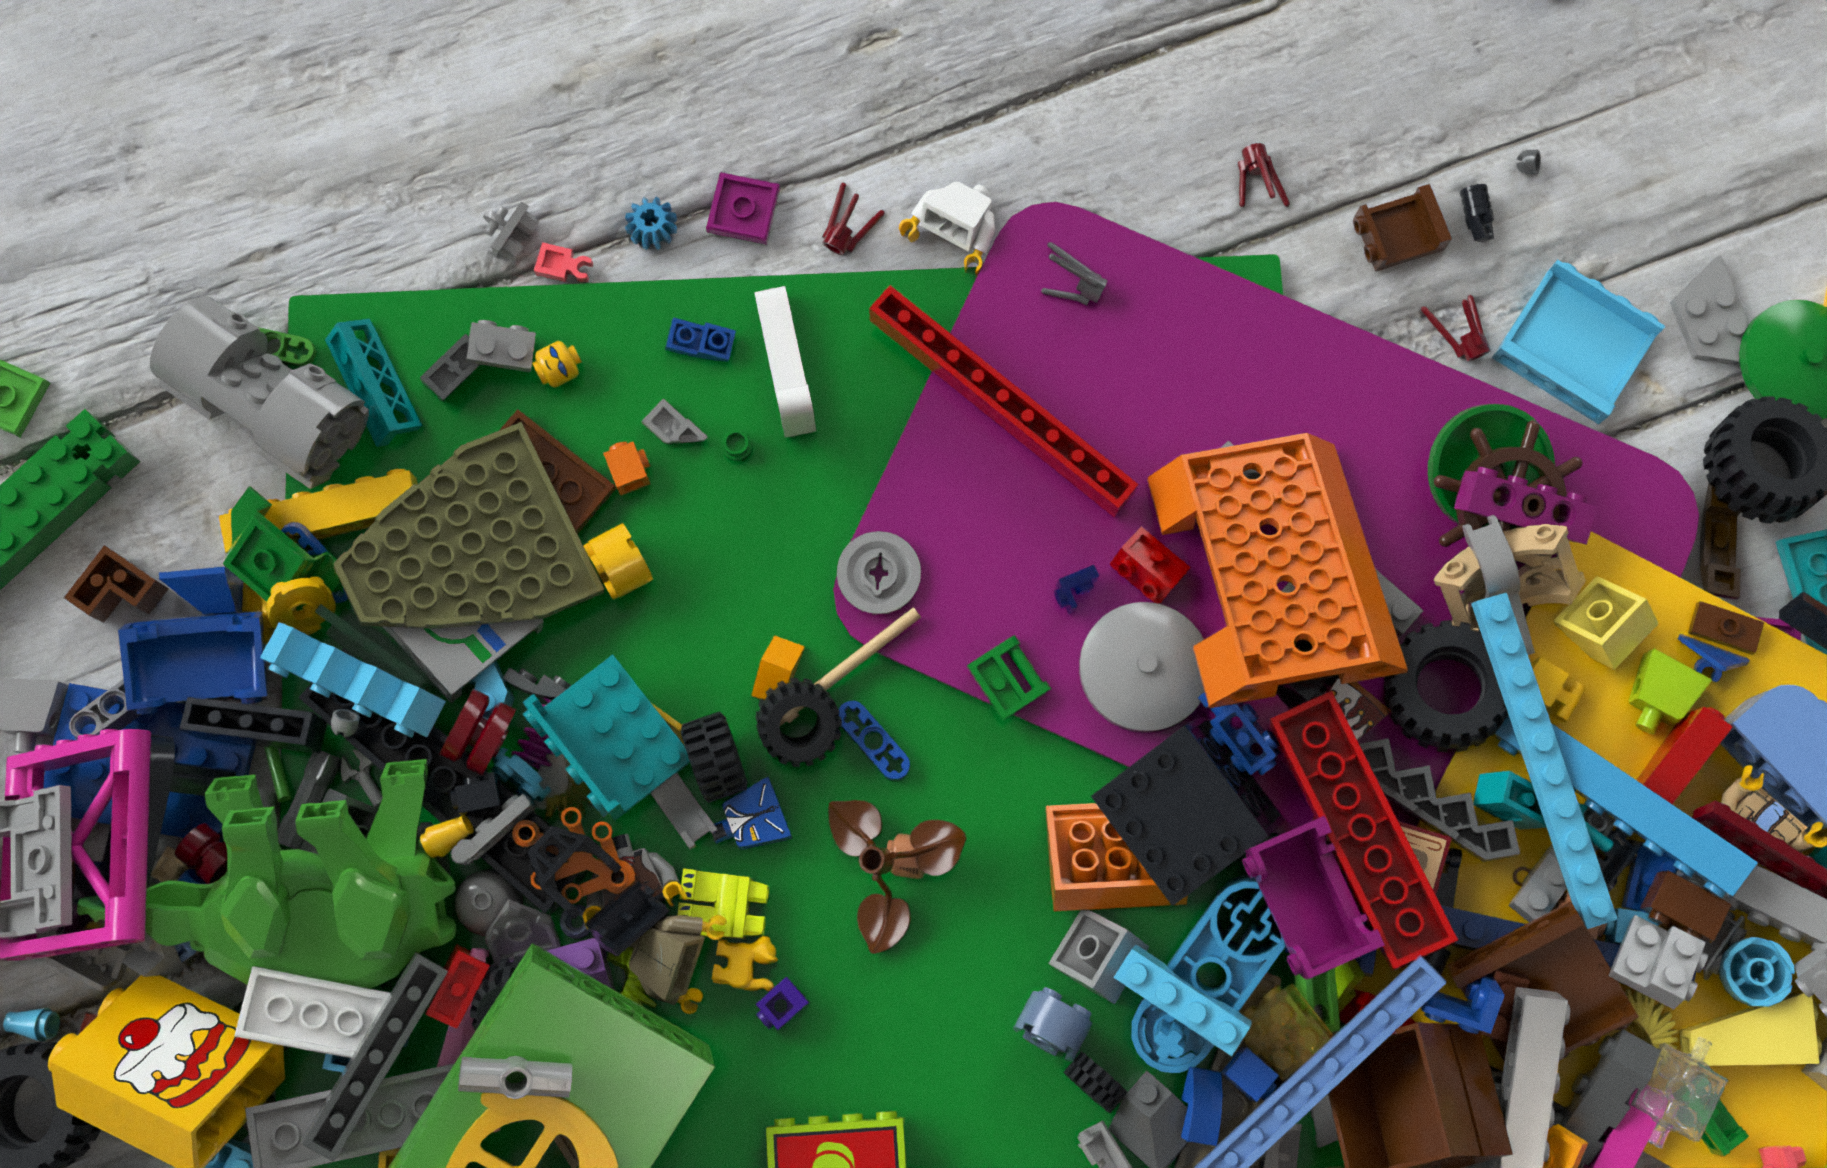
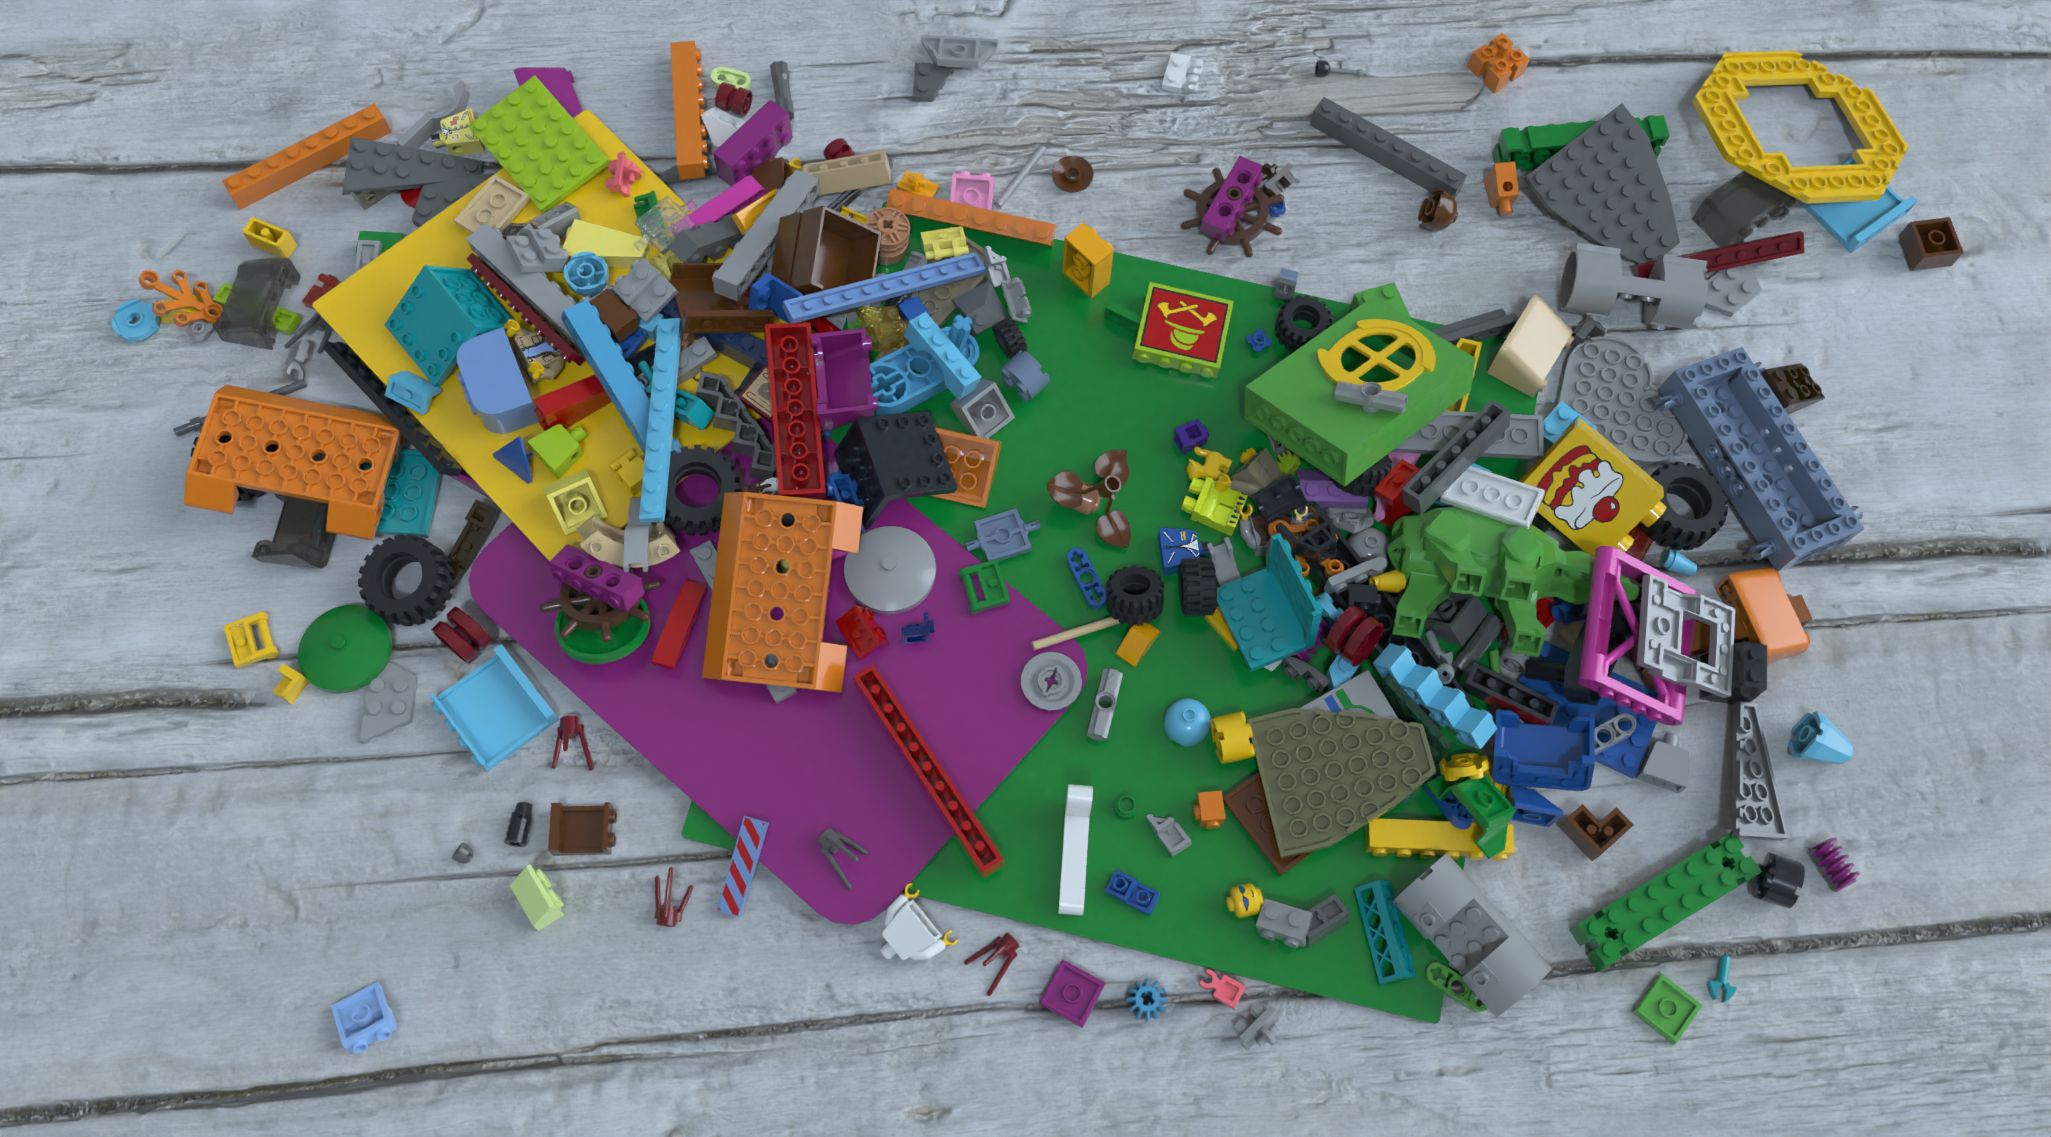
camera: 165 degrees left, 10 degrees down
(204, 851) = (1555, 627): dark red wheel -> none
(684, 577) = (1187, 722): none -> medium azure cylinder
(799, 585) = (1102, 717): none -> light grey piece
(1007, 766) = (1002, 535): none -> sand blue plate
(1188, 235) = (742, 866): none -> medium blue tile
(1204, 1108) = (949, 303): blue slope -> none
(1392, 503) = (679, 625): none -> red slope
(1415, 132) = (536, 898): none -> yellowish green slope
(1664, 410) = (465, 631): none -> dark red wheel
(1726, 627) = (497, 477): reddish brown plate -> none

